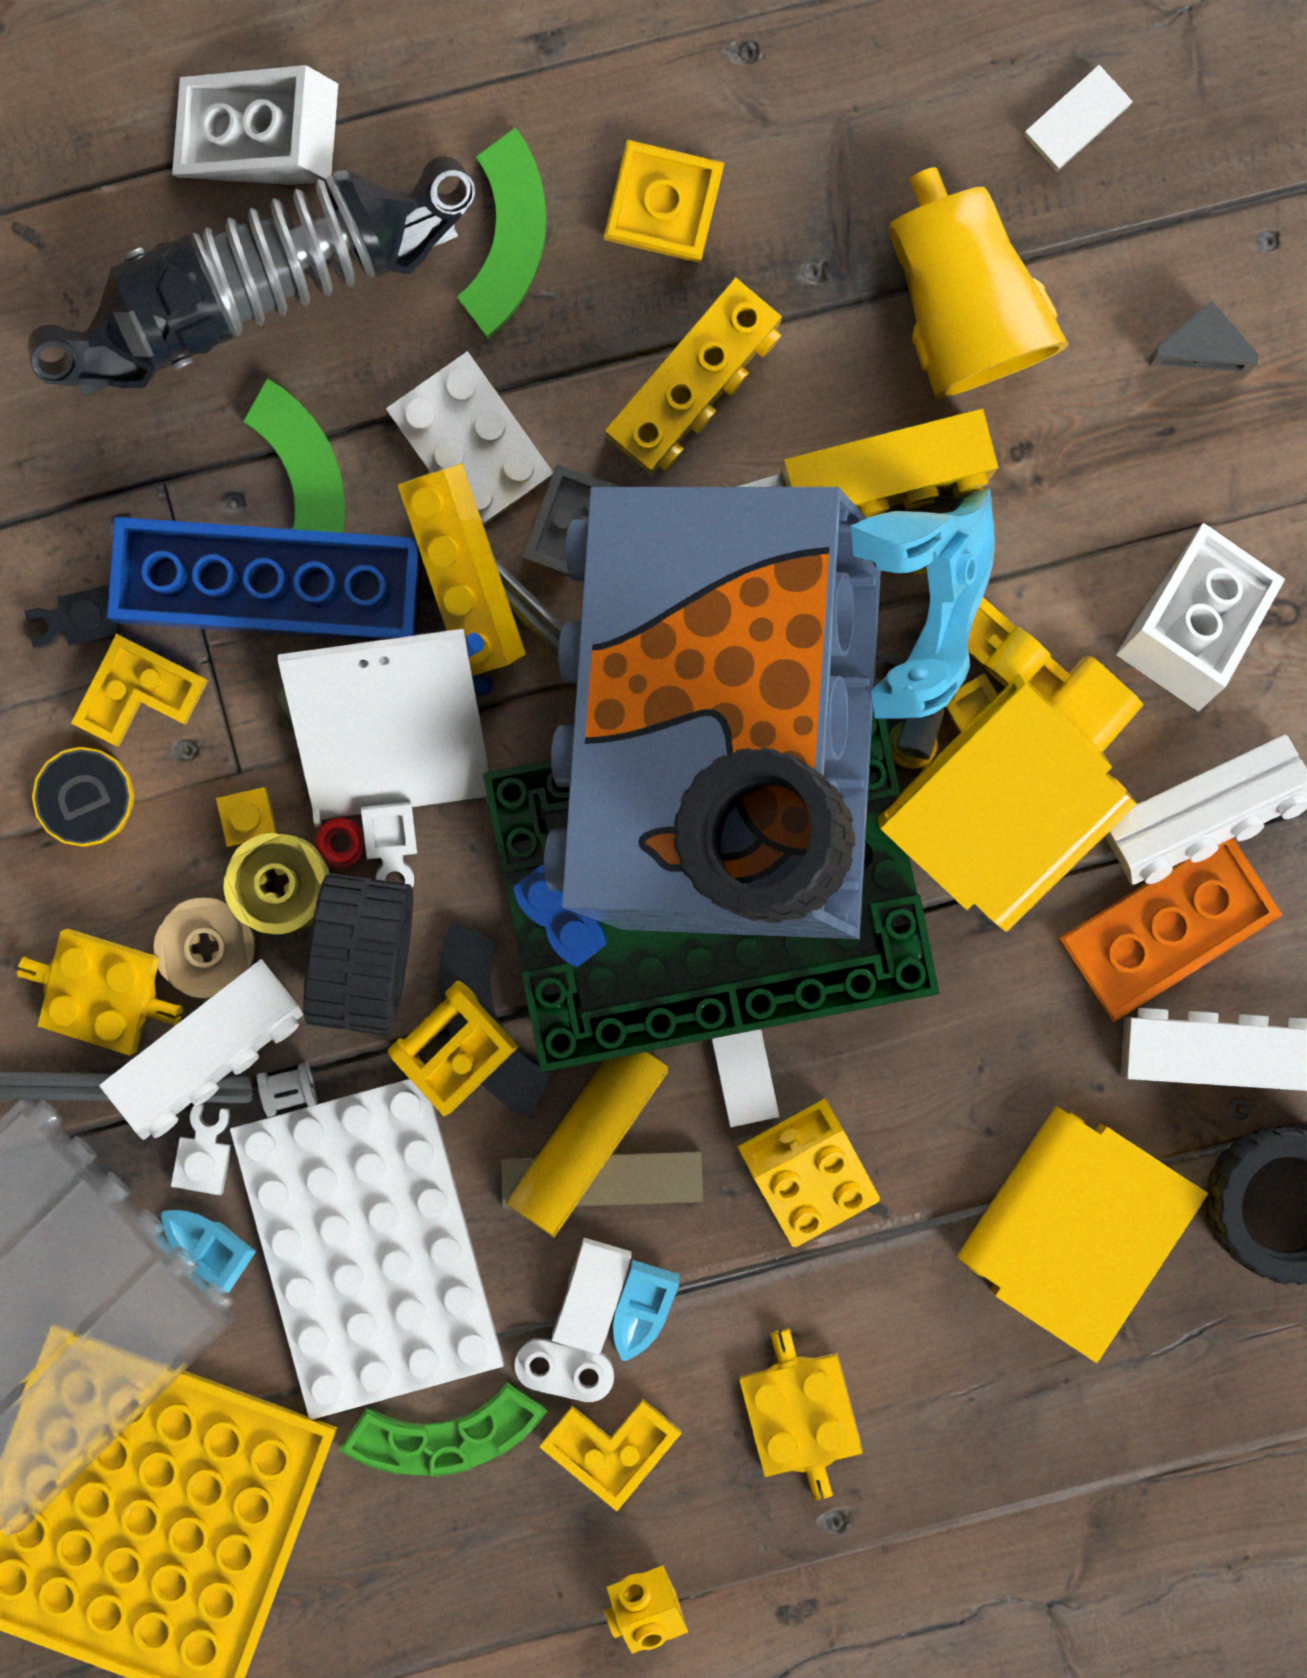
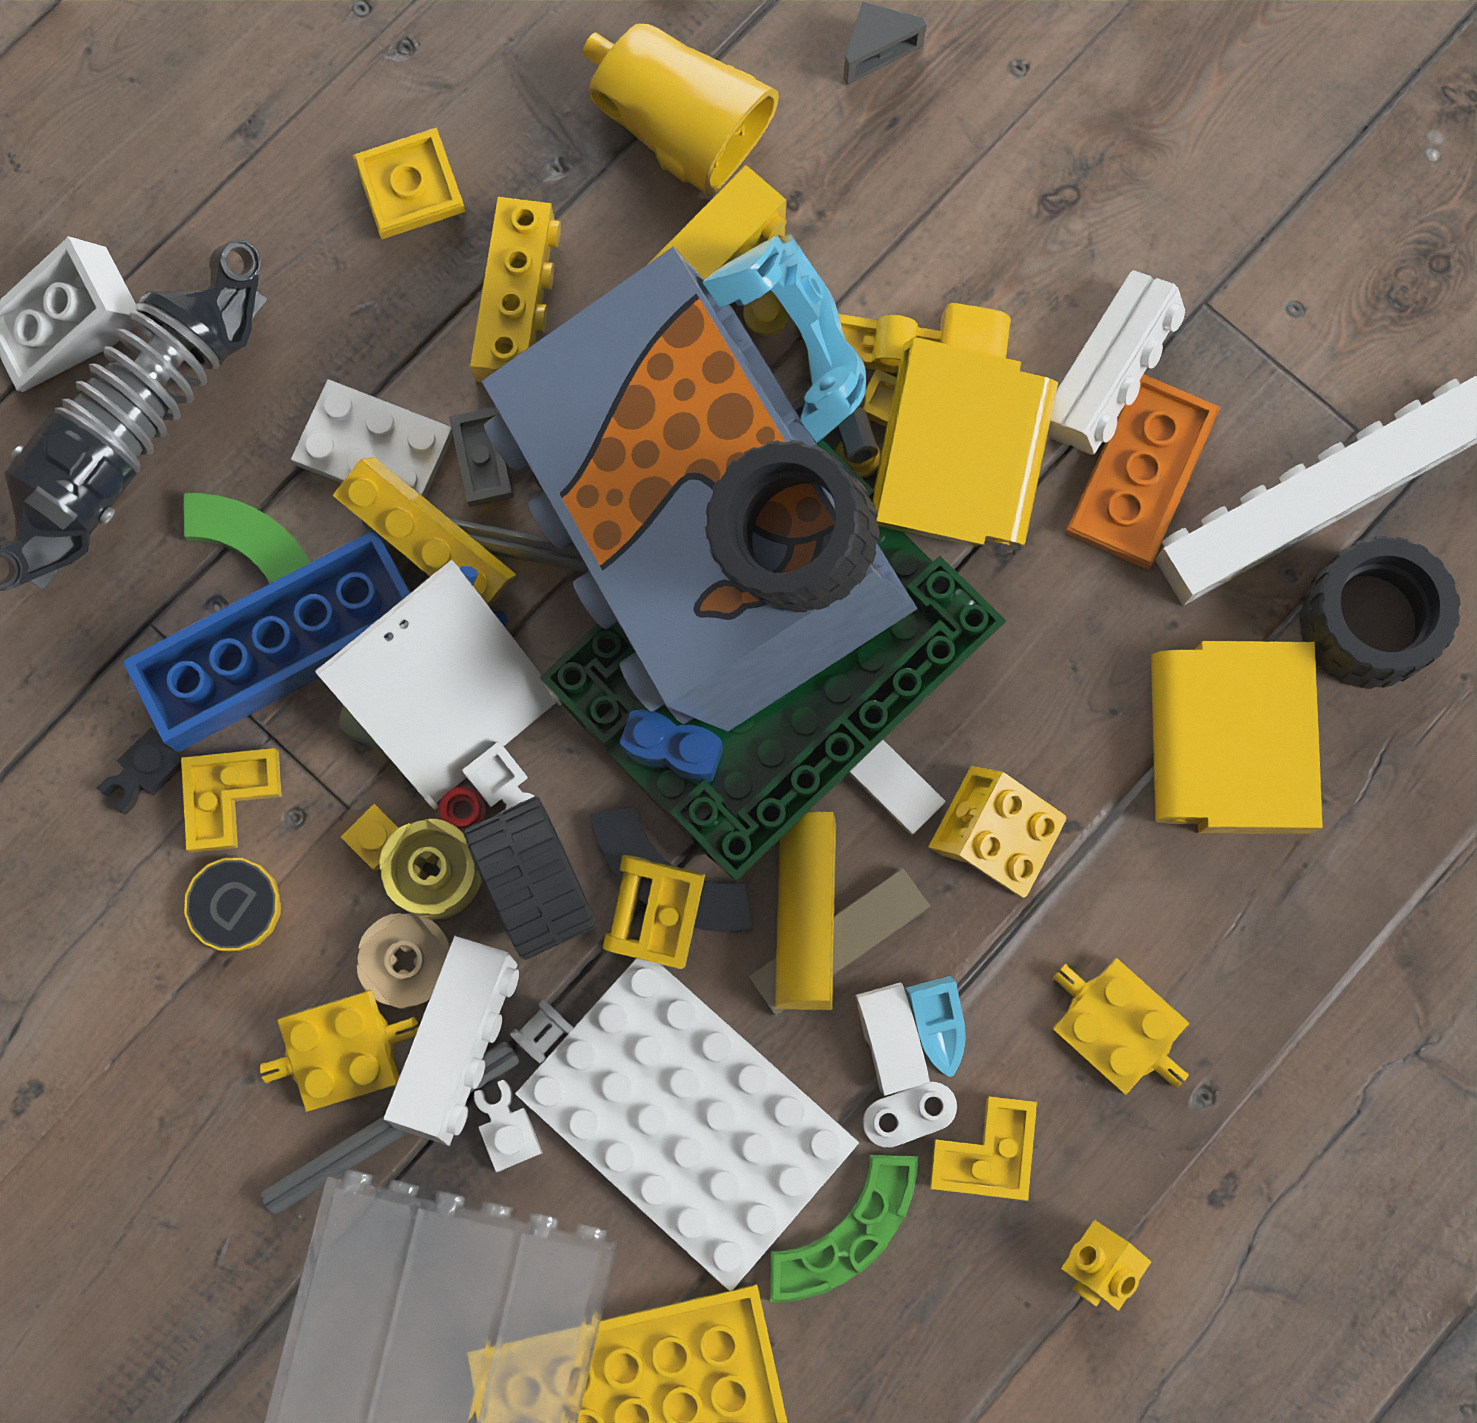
camera: 35 degrees left, 10 degrees down
(216, 1248) = (568, 1199): medium azure plate -> none
(517, 236) = (315, 274): bright green tile -> none
(1201, 618) = (1010, 233): white slope -> none

